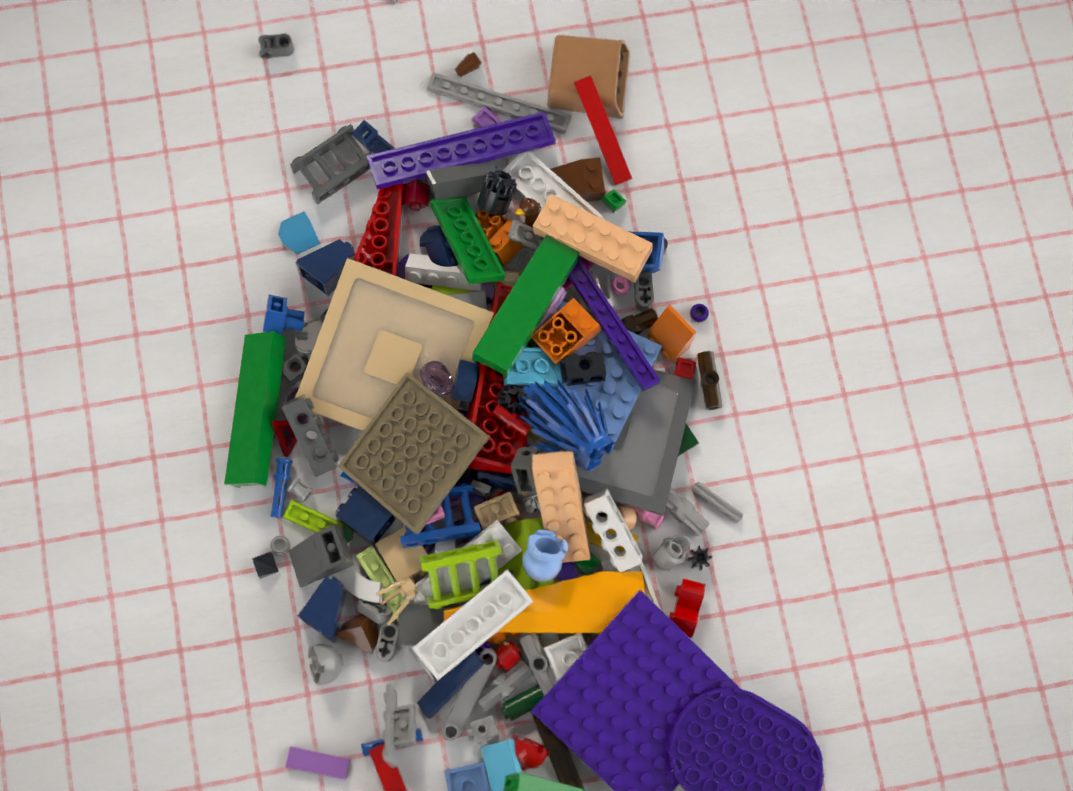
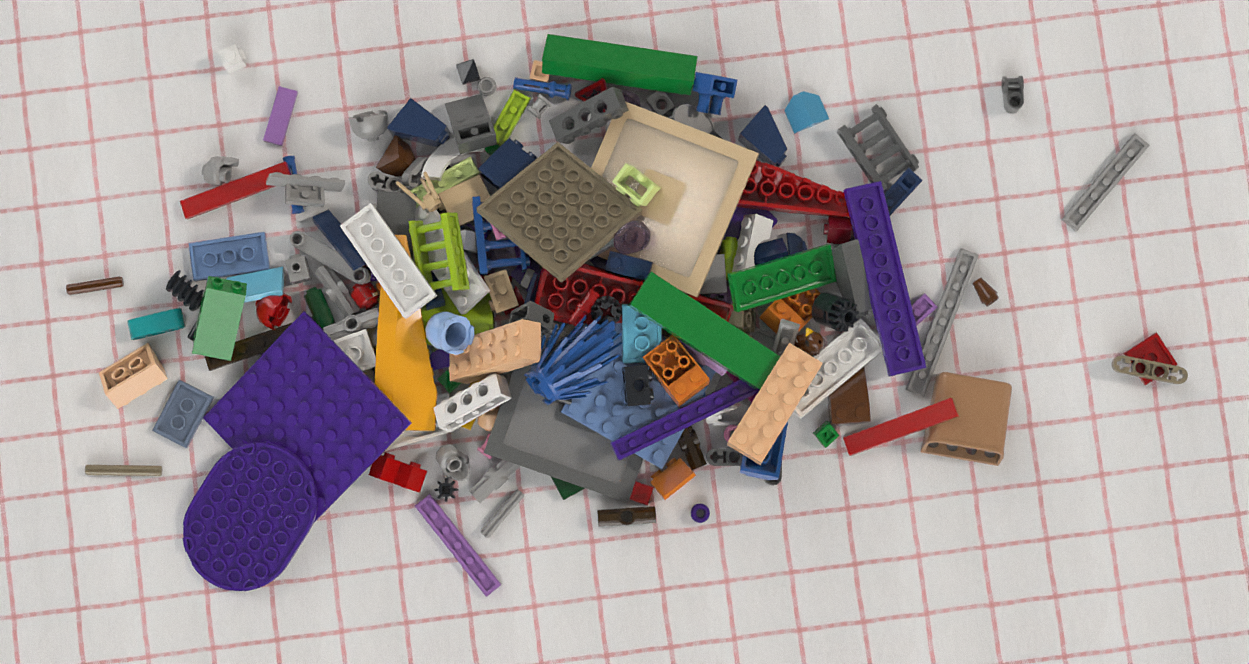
camera: 100 degrees right, 10 degrees up
(264, 493) = (536, 72): none -> light nougat plate
(374, 376) = (629, 170): none -> yellowish green window
(752, 544) = (458, 545): none -> medium lavender tile

